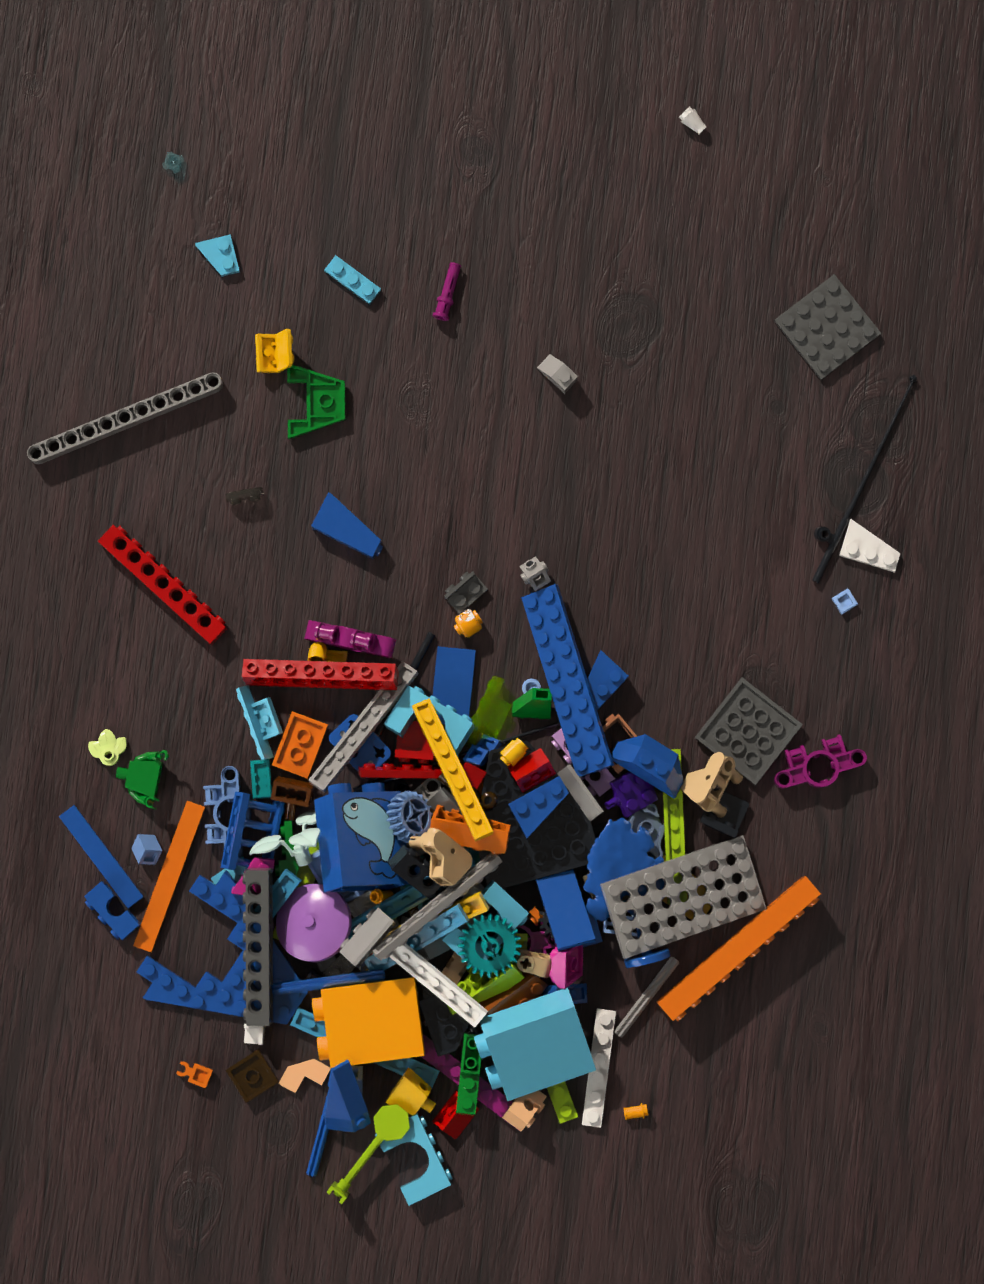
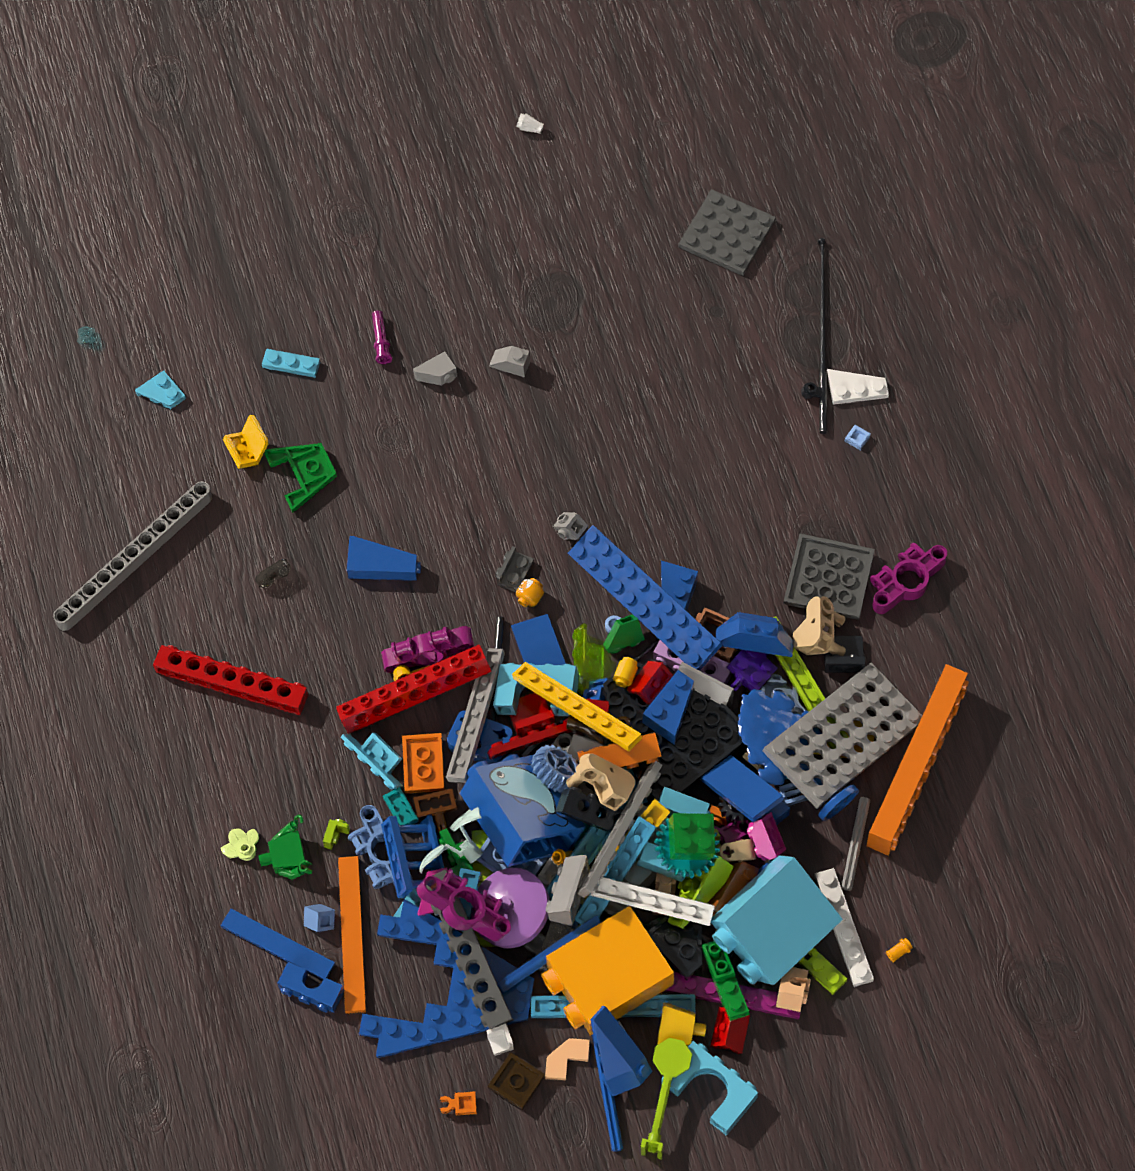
camera: 25 degrees left, 20 degrees down
(190, 776) = (332, 832): none -> lime bracket
(288, 920) = (485, 905): none -> magenta piece
(484, 353) = (436, 370): none -> light grey slope
(493, 947) = (691, 836): none -> green brick

